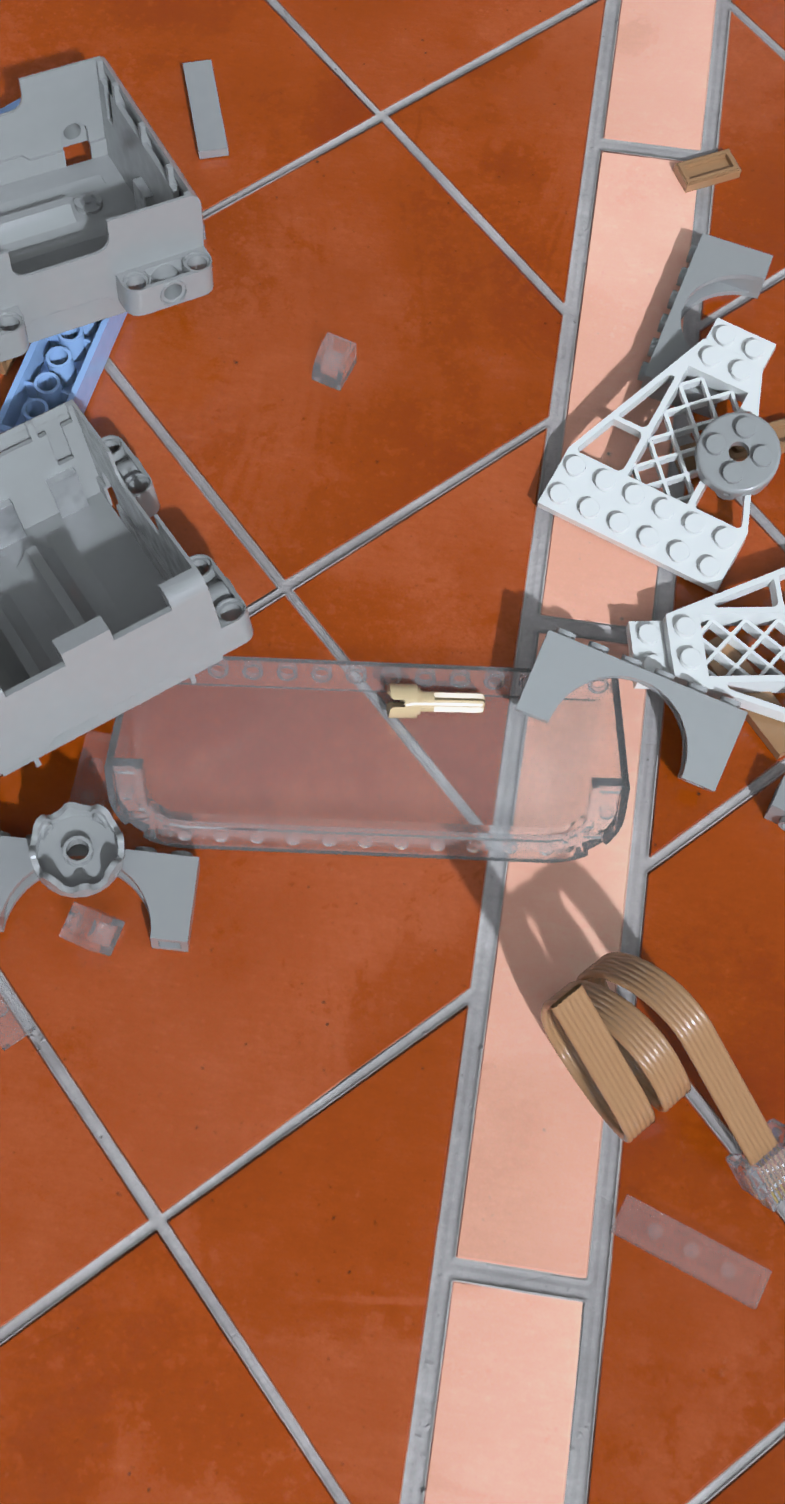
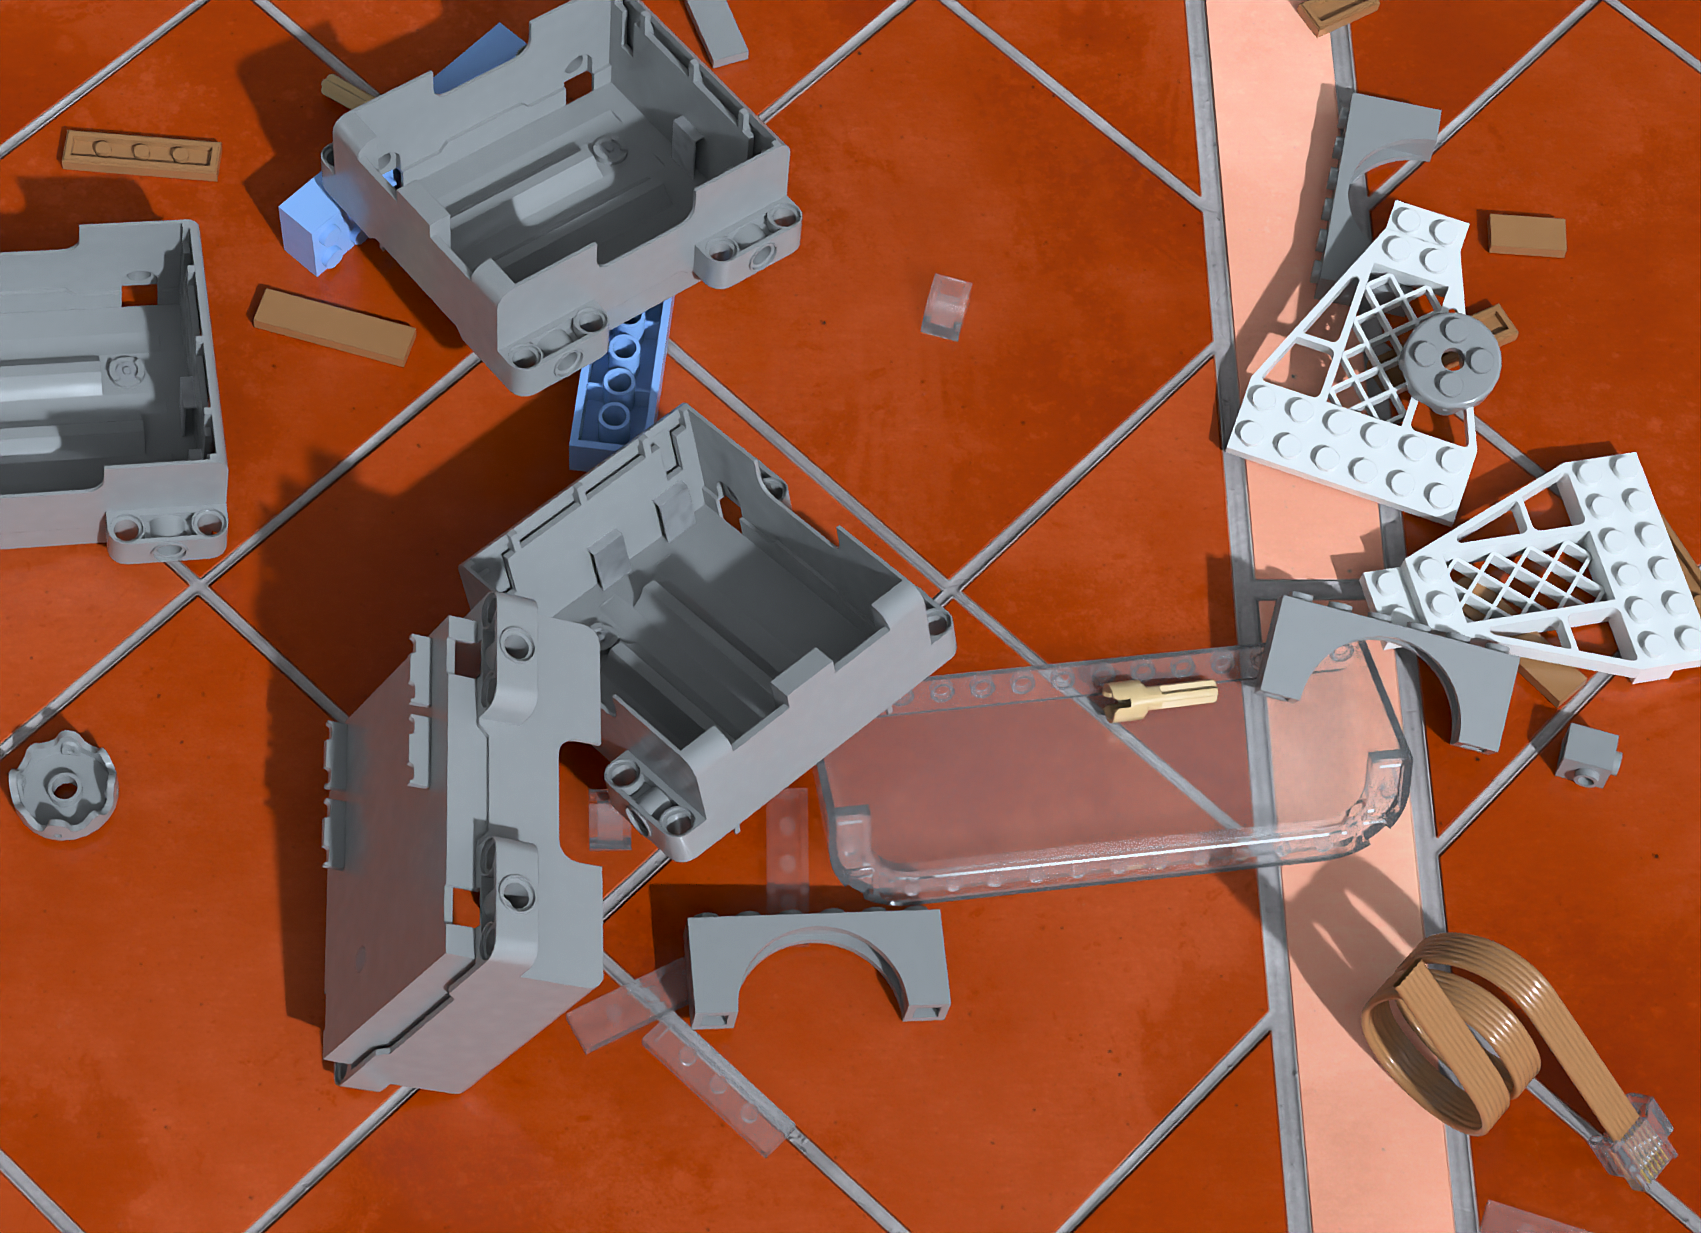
camera: 15 degrees left, 5 degrees down
(70, 826) = (818, 892): light grey plate -> none
(92, 929) = (837, 1006): clear brick -> none

